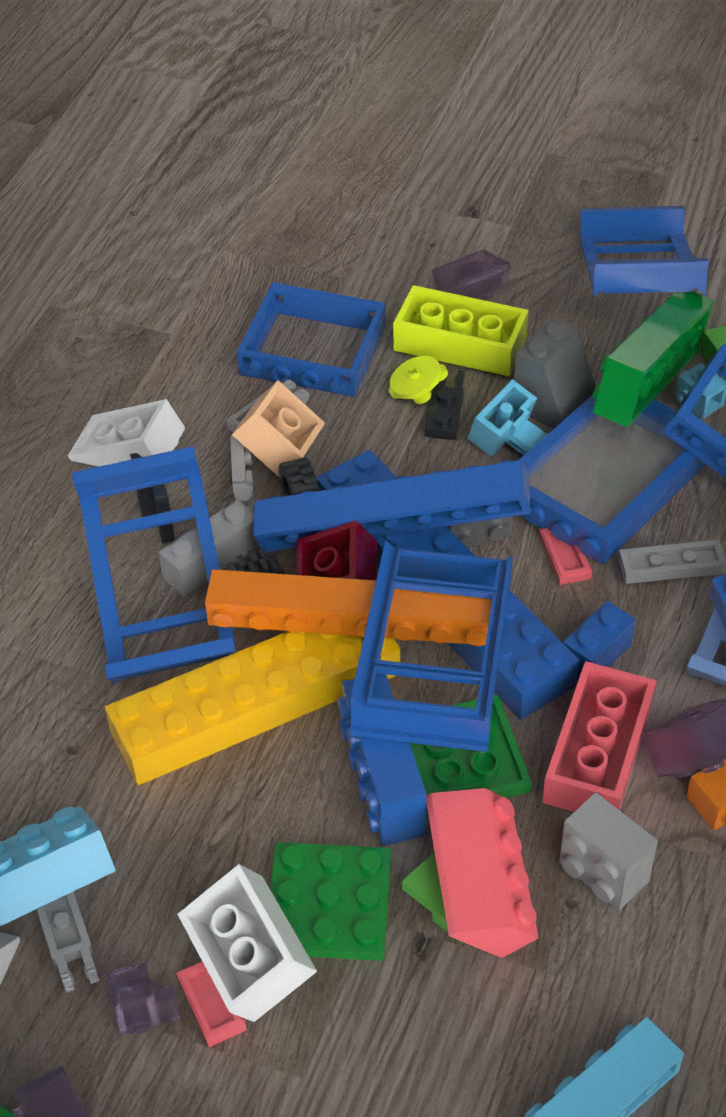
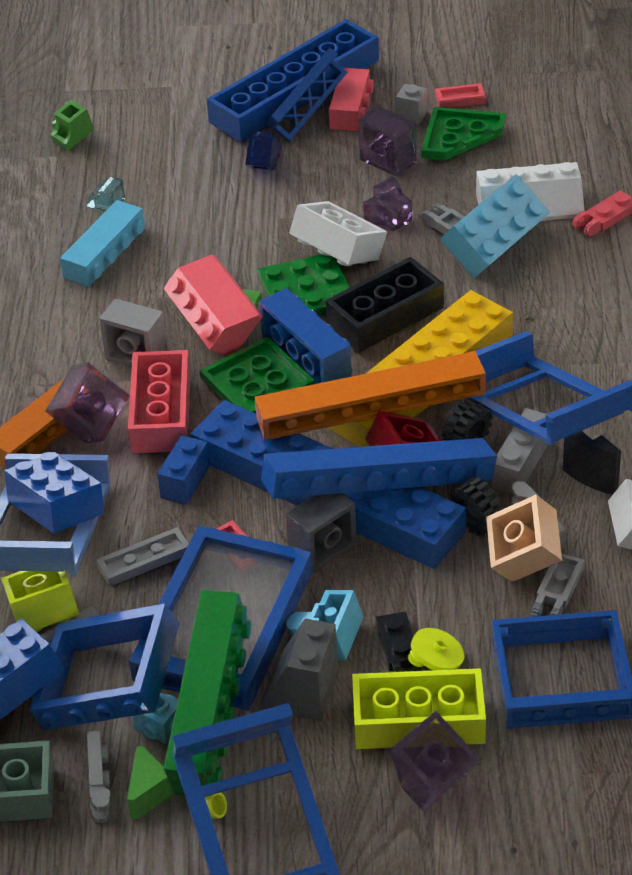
camera: 160 degrees right, 5 degrees down
(247, 798) = (385, 304): none -> black brick
(425, 721) = (322, 437): blue piece -> none

